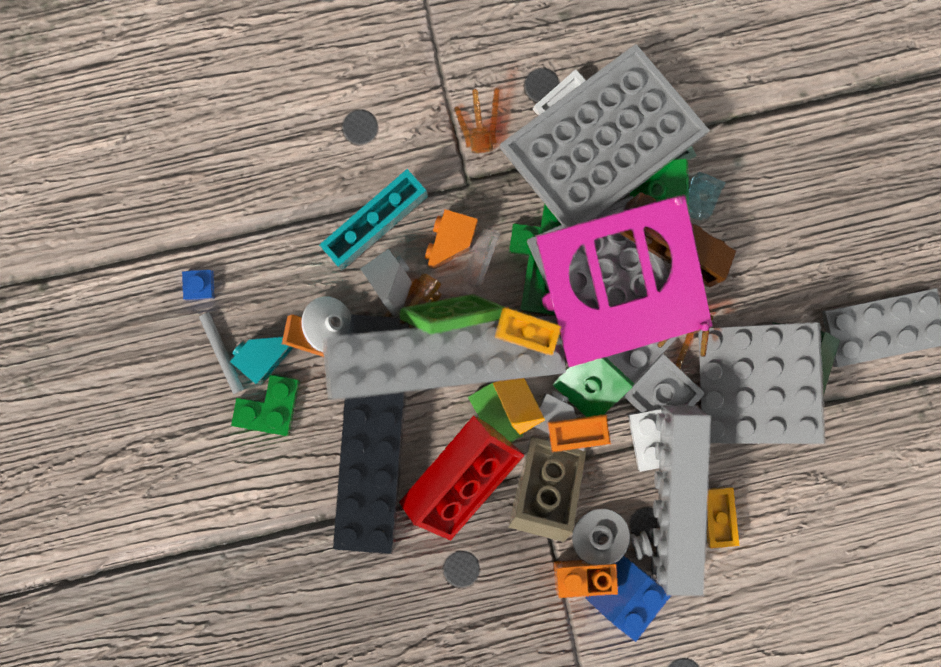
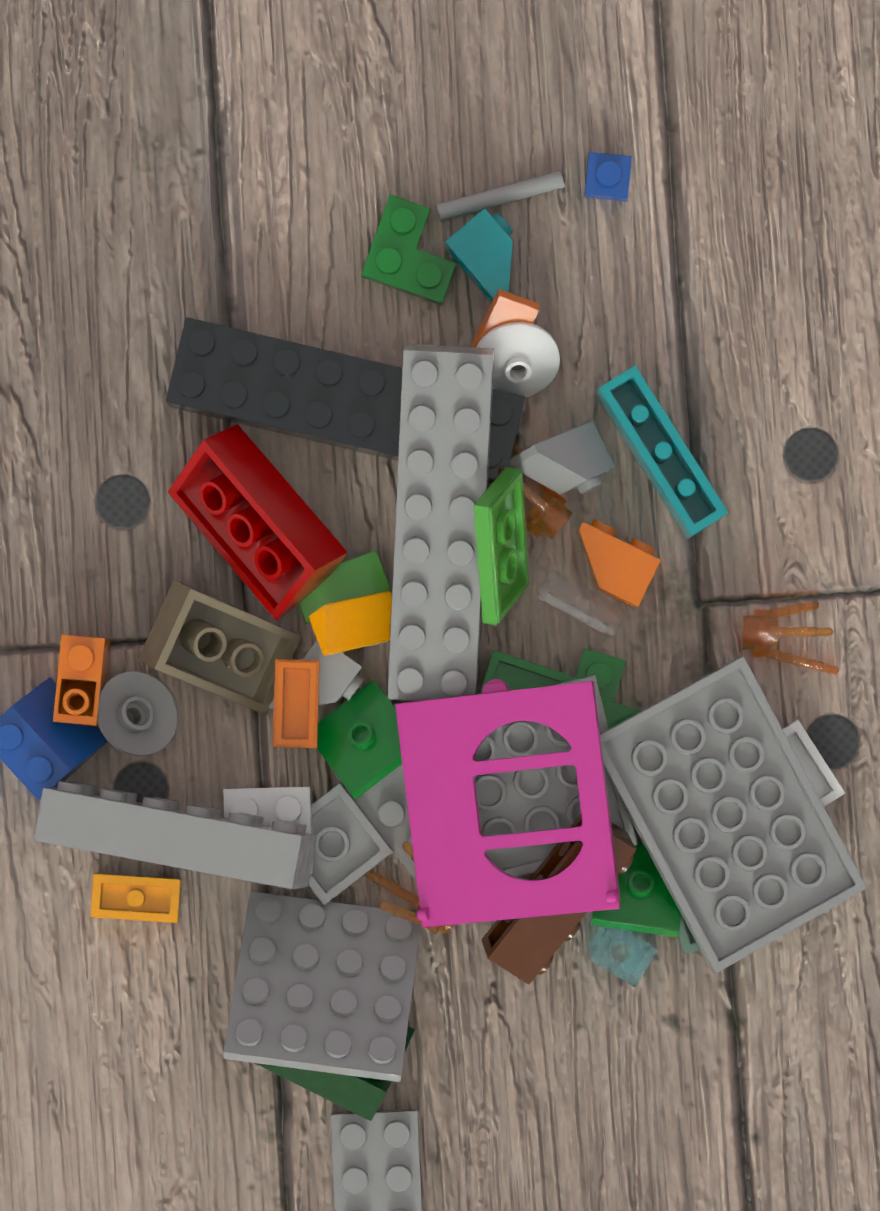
camera: 95 degrees right, 0 degrees up
(527, 331) = (456, 648): light orange plate -> none
(641, 545) = (114, 772): light grey bush -> none

